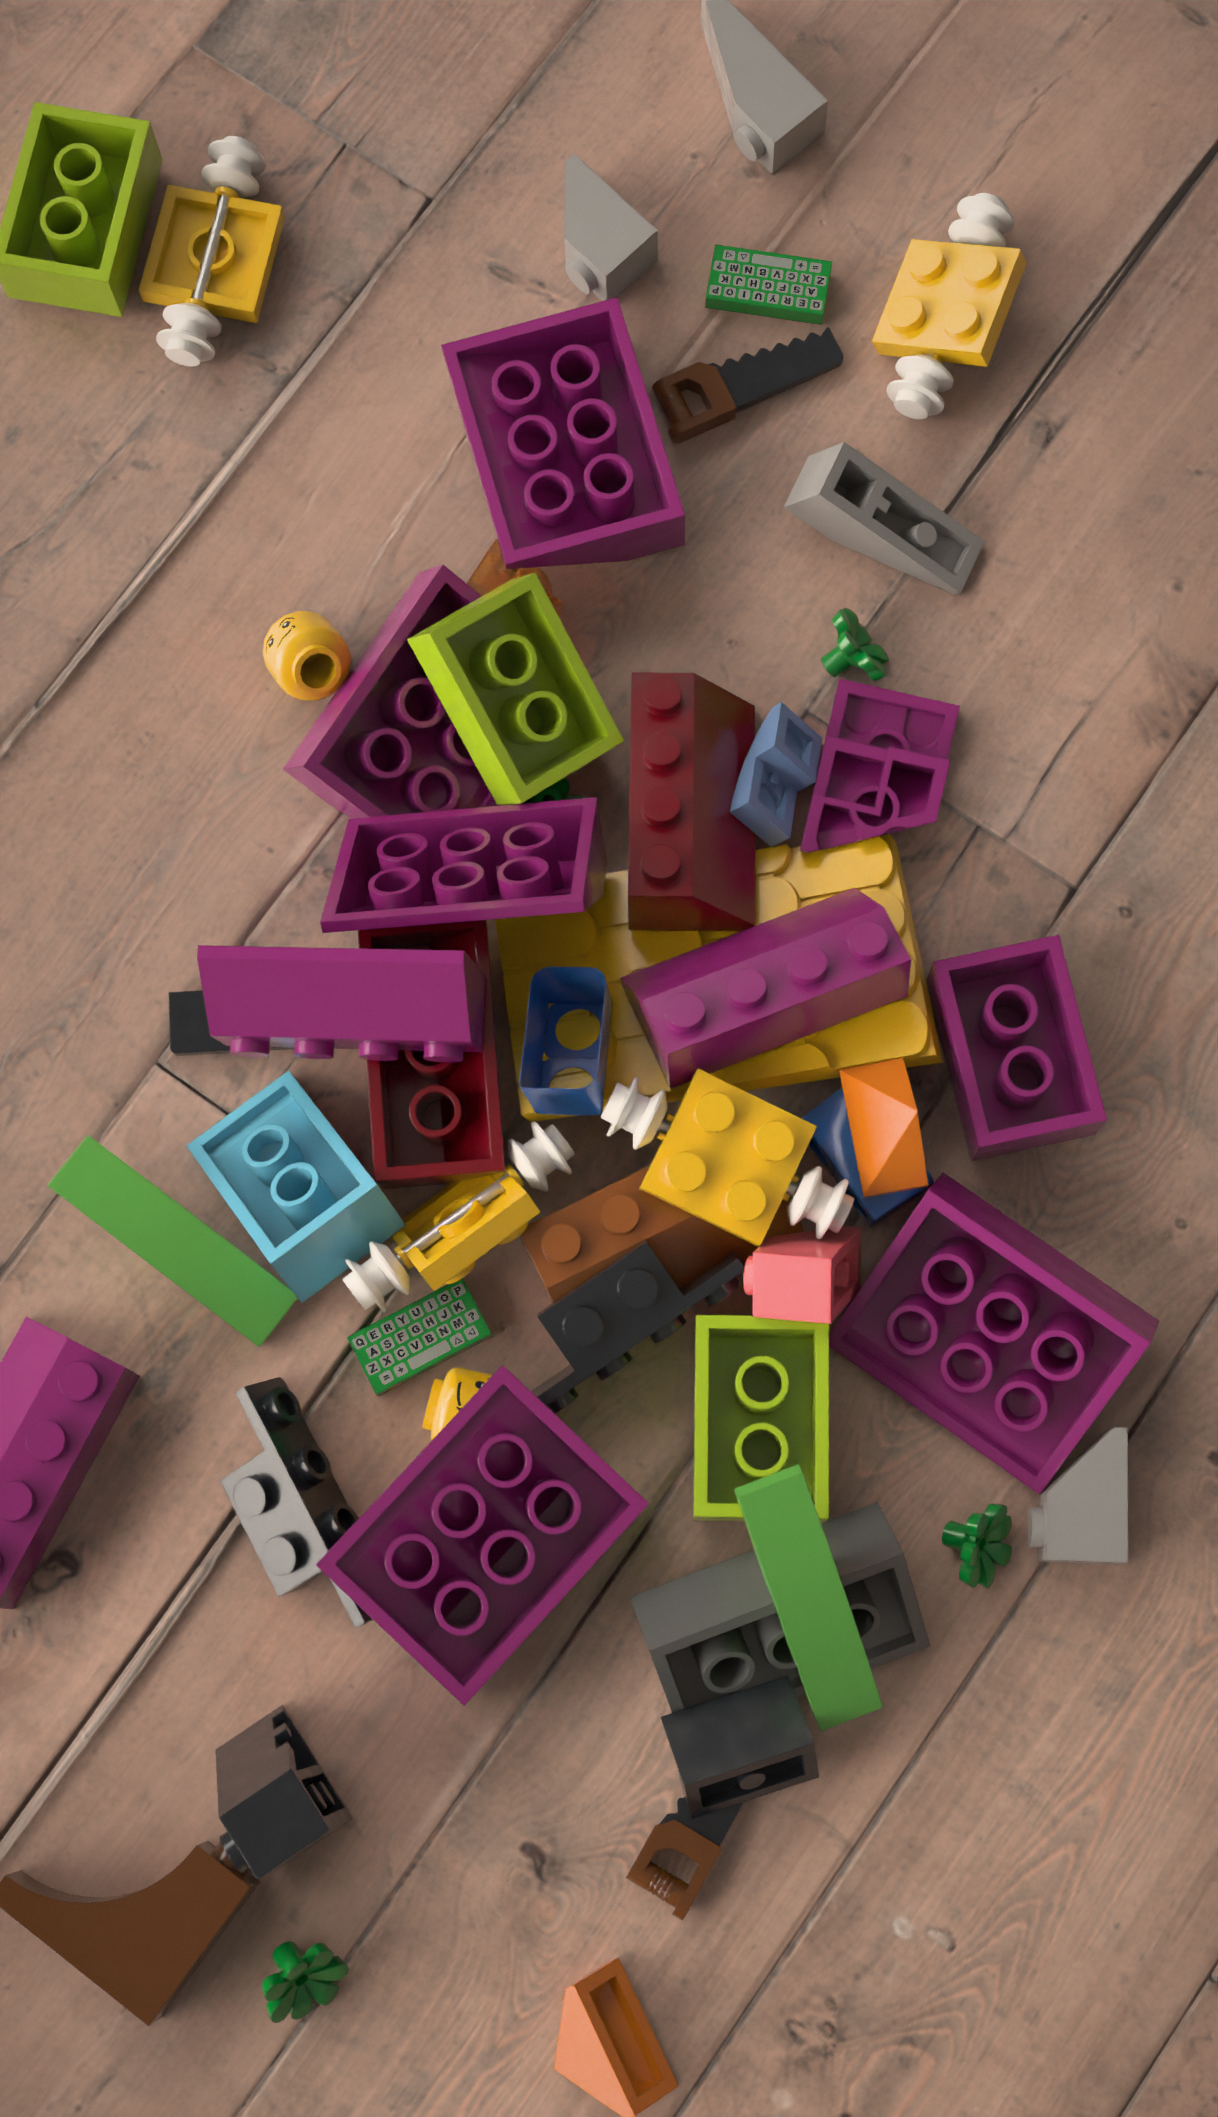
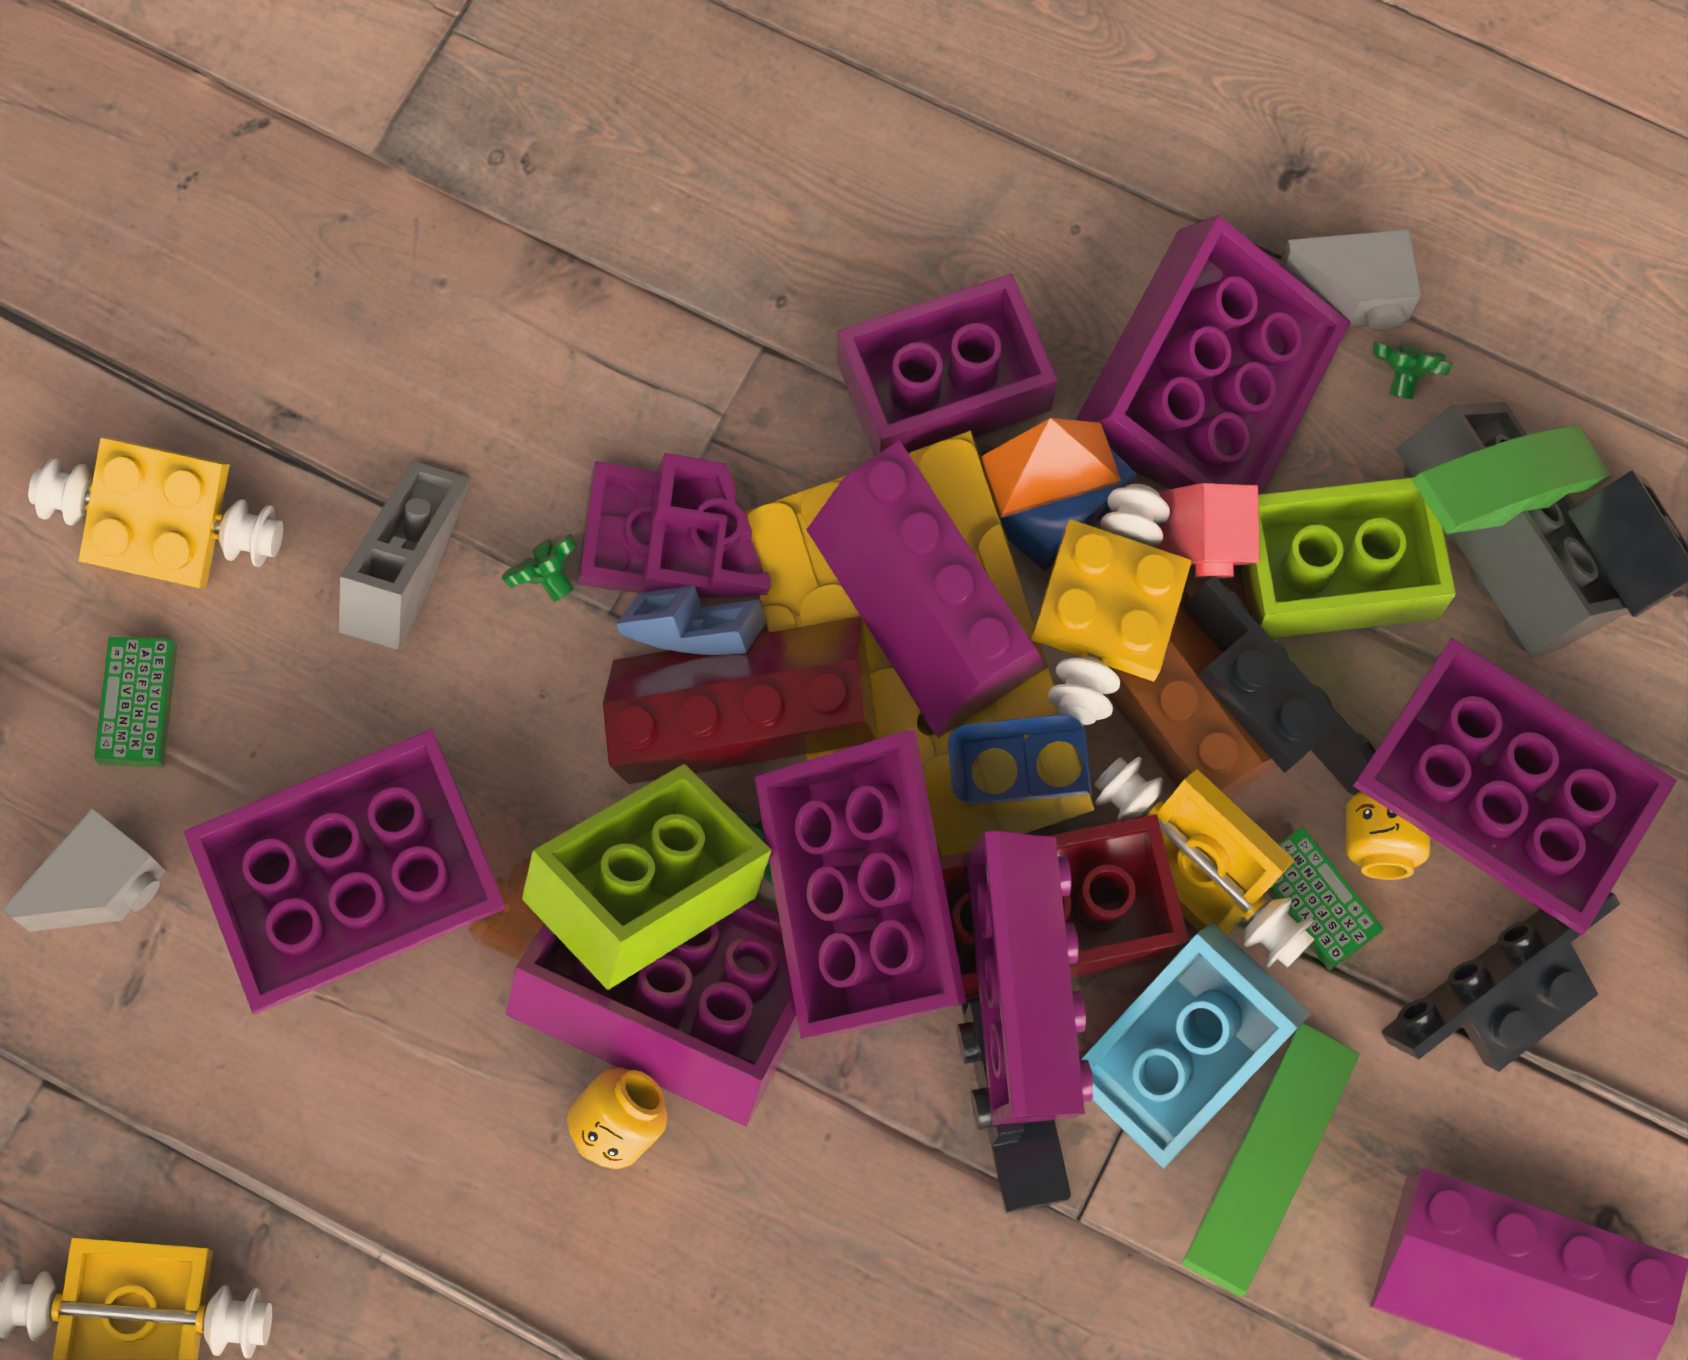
camera: 105 degrees left, 5 degrees down
(742, 382) = (249, 709): piece -> none

